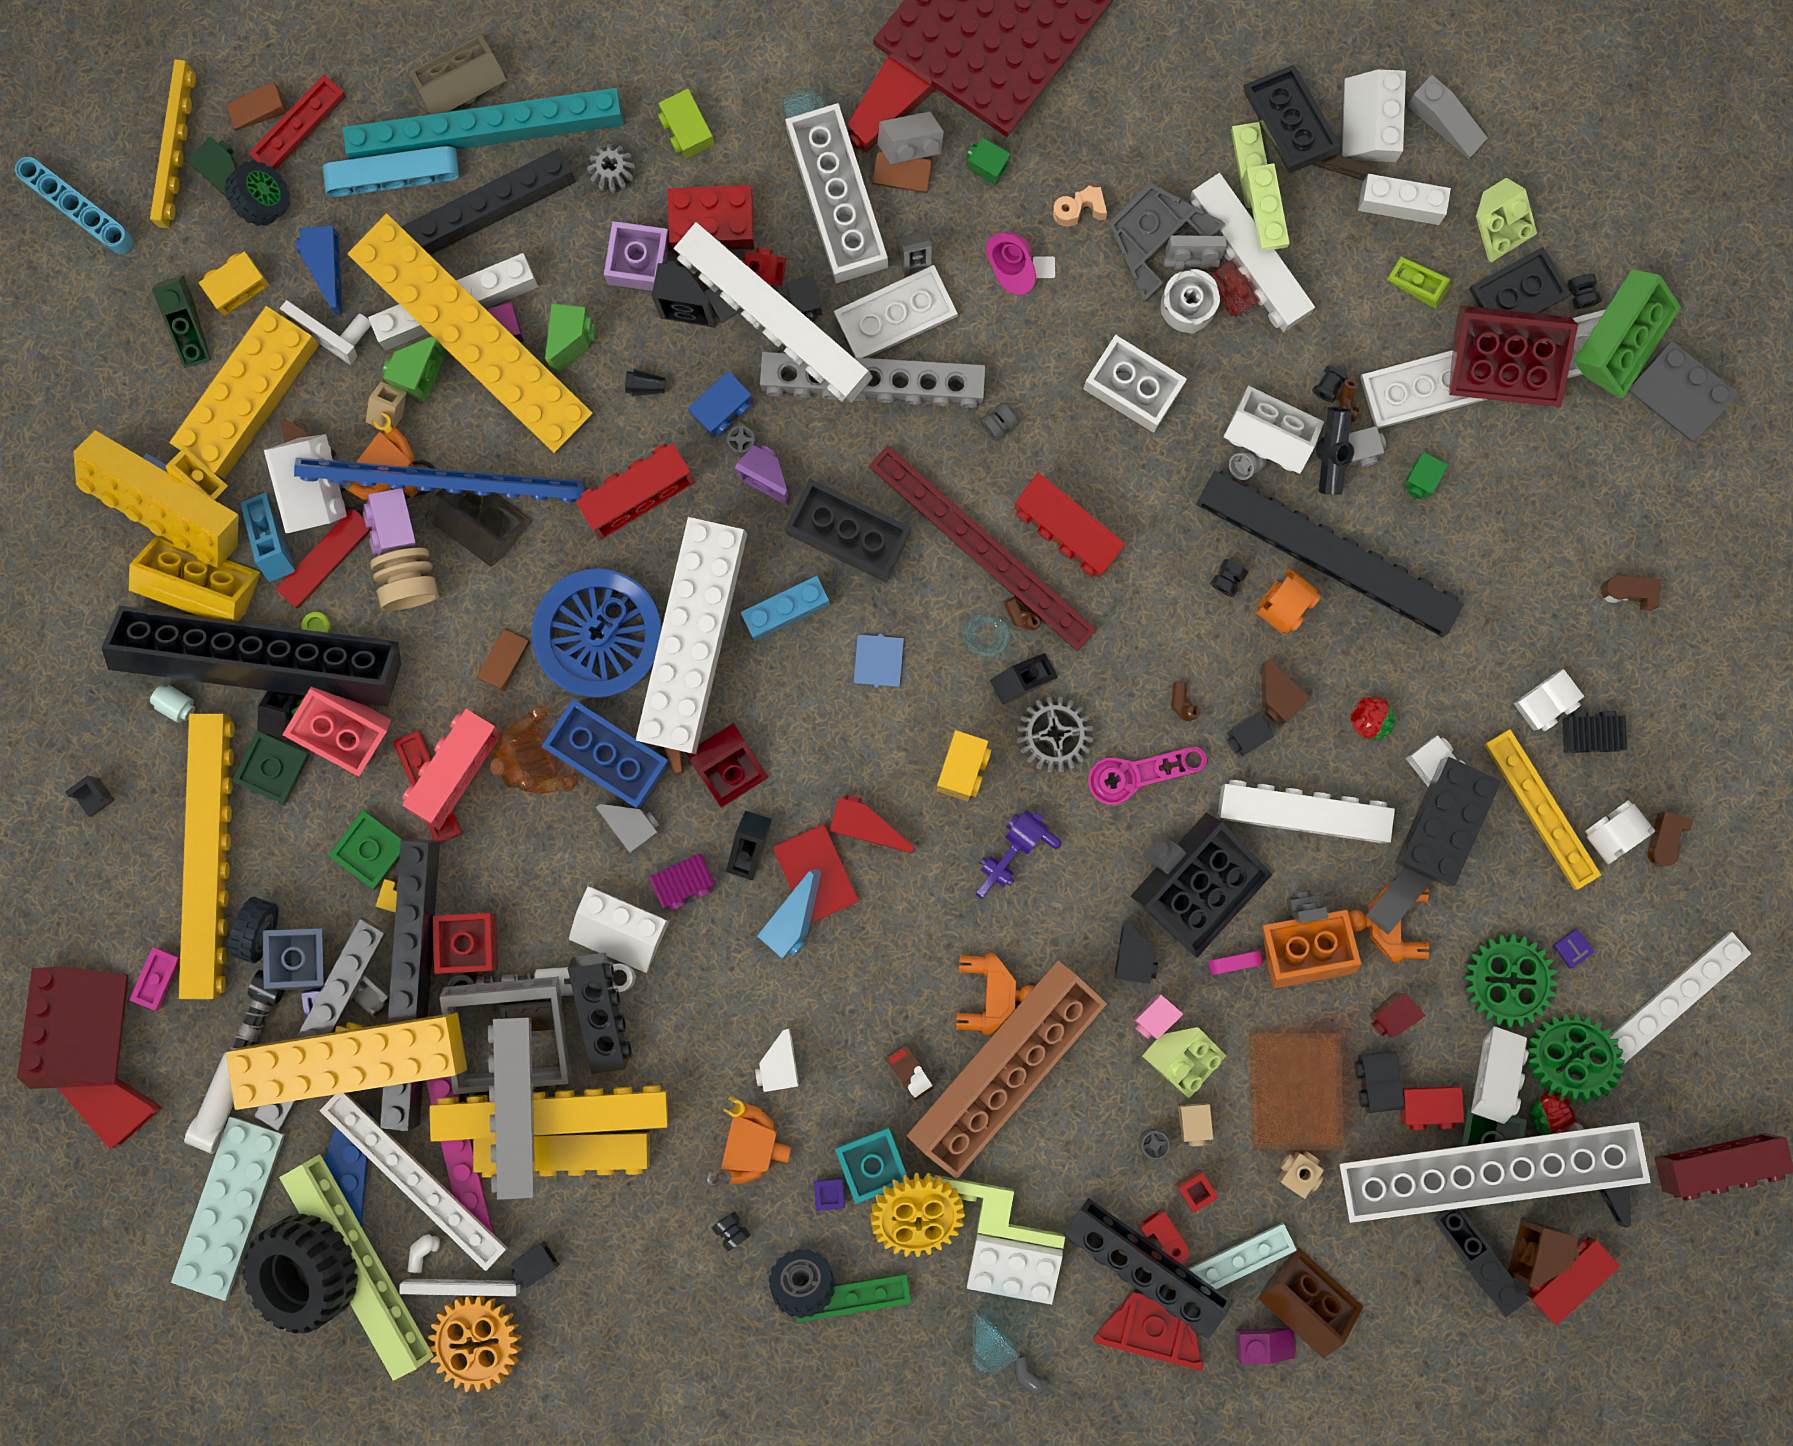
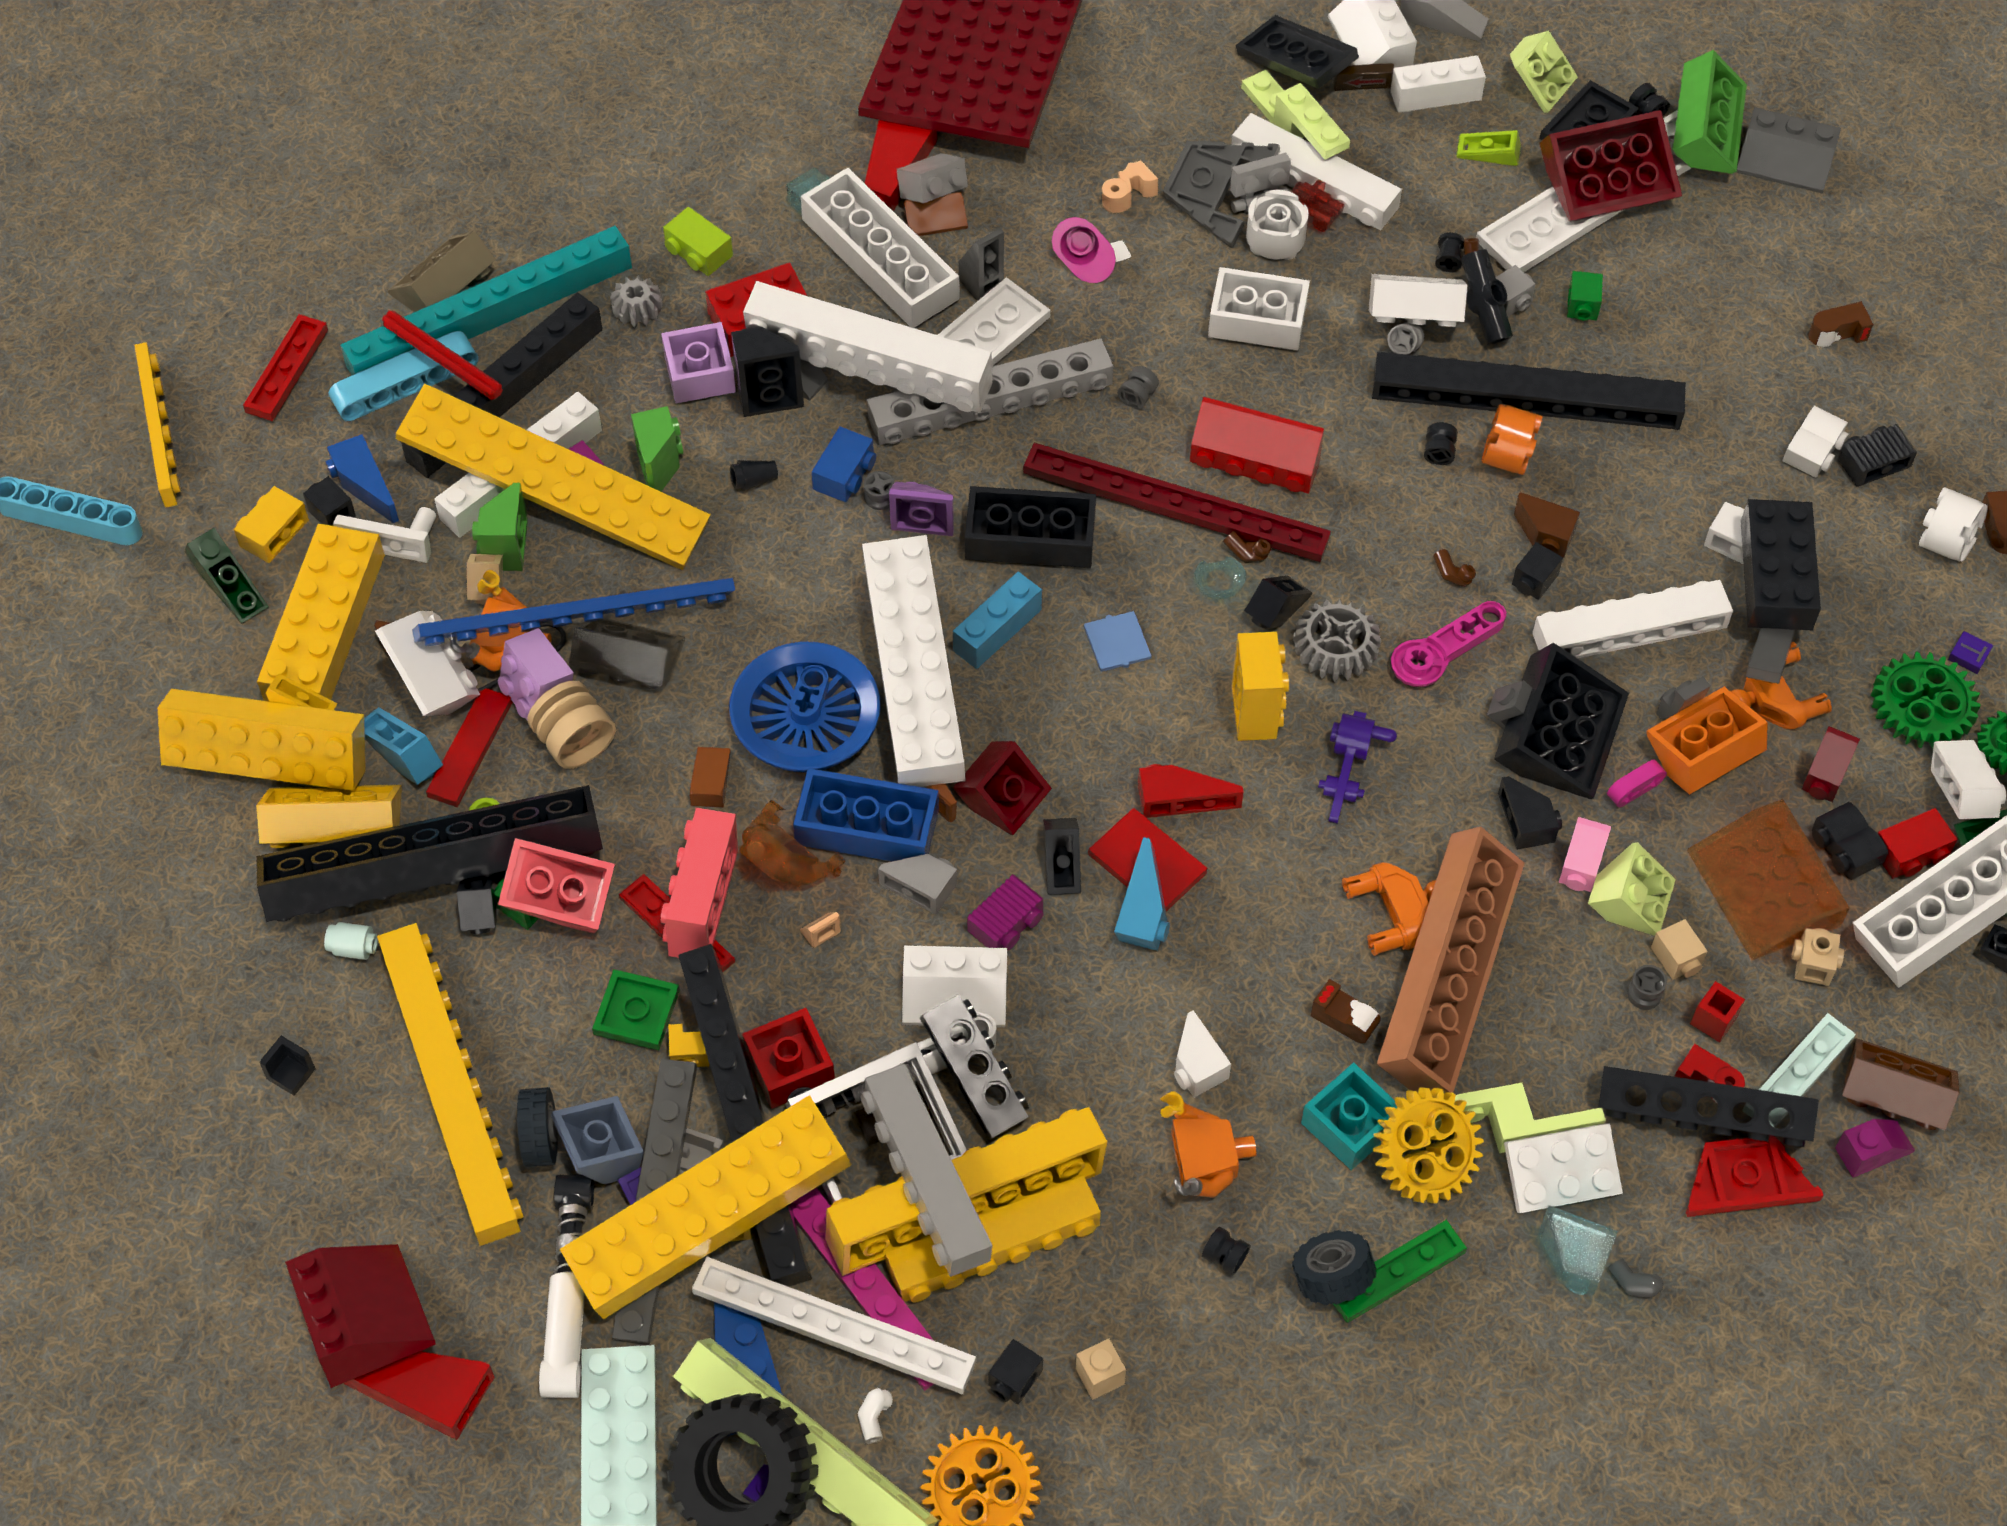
camera: 25 degrees left, 25 degrees down
(155, 979) = (435, 1233): dark pink plate -> none
(214, 162) = (219, 431): dark green slope -> none
(257, 106) = (236, 366): dark orange slope -> none
(257, 193) = (269, 430): black wheel -> none
(270, 767) = (489, 967): dark green plate -> none
(286, 280) = (328, 500): none -> black brick
(419, 176) = (442, 355): none -> red axle
(460, 1287) = (936, 1431): white tile -> none
(536, 832) = (822, 929): none -> light nougat slope
(597, 1289) = (1100, 1369): none -> tan brick
(635, 491) = (789, 562): red brick -> none
(829, 1194) = (1318, 1172): dark purple plate -> none
(988, 160) = (1017, 178): green brick -> none
(1373, 718) = (1652, 513): red piece -> none
(1542, 810) = (1873, 541): yellow plate -> none

